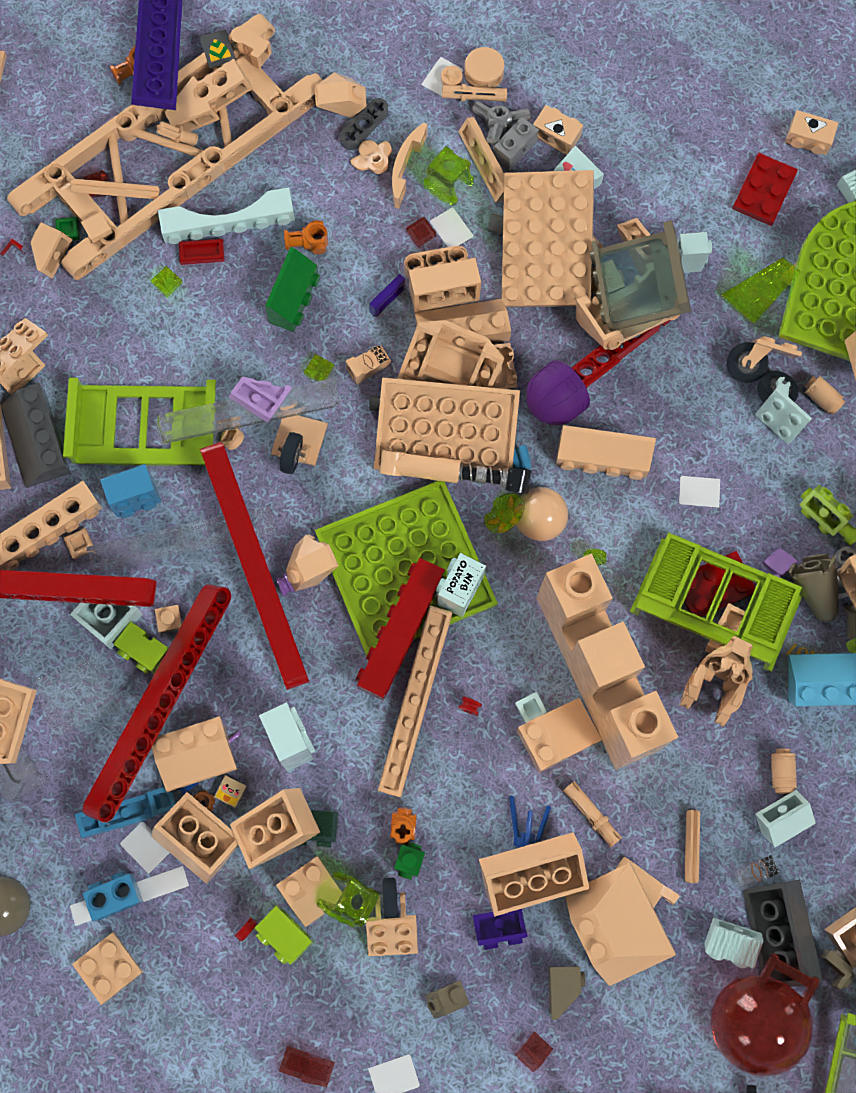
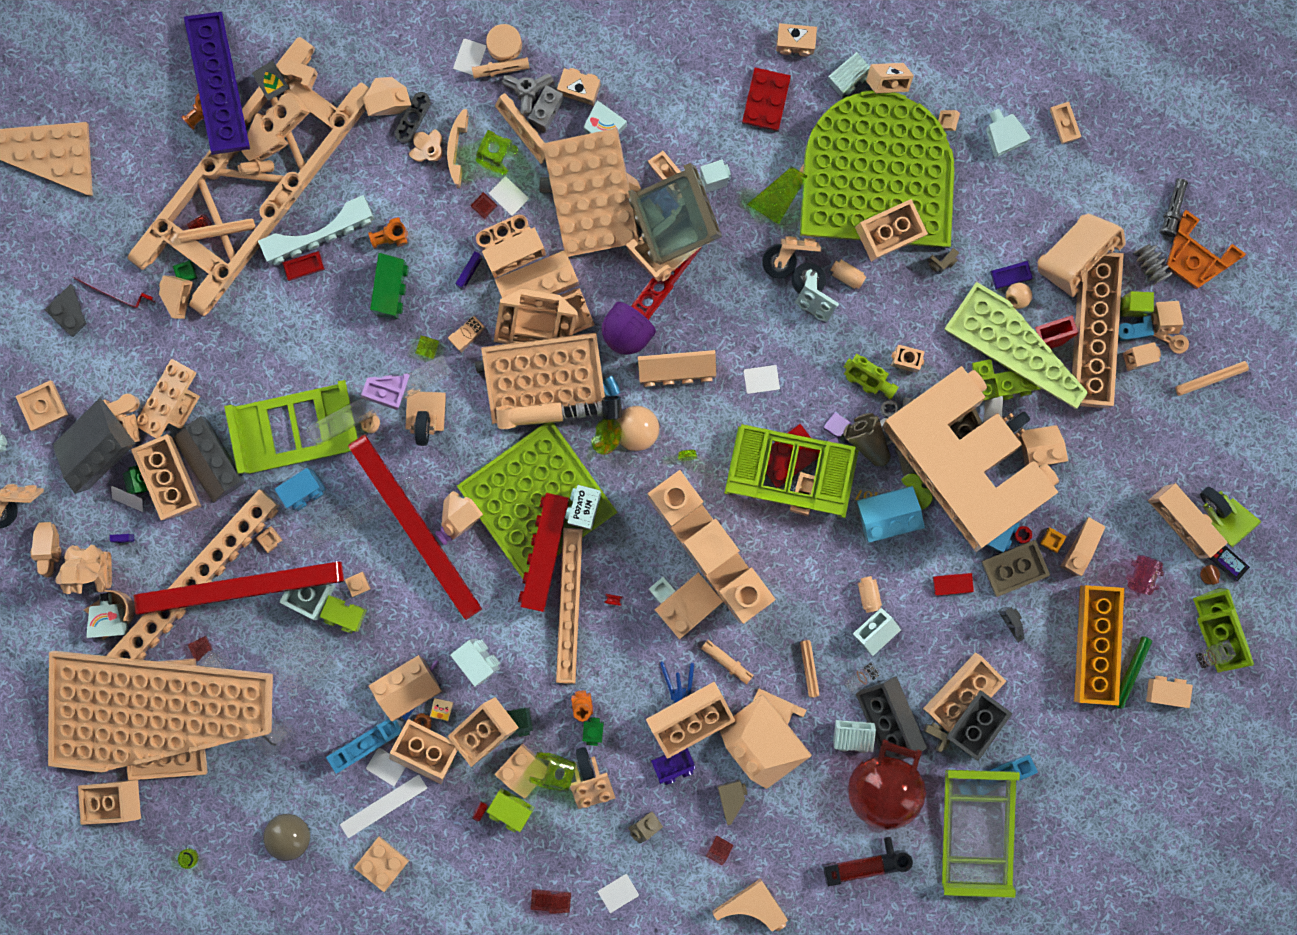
camera: 10 degrees left, 10 degrees up
(96, 227) = (211, 269): light nougat tile -> none
(114, 902) = (373, 814): dark azure brick -> none
(156, 703) = (367, 654): red beam -> none
(166, 281) = (281, 299): clear neon green tile -> none
(451, 76) = (477, 56): light nougat tile -> none
(729, 664) = (804, 522): light nougat animal -> none

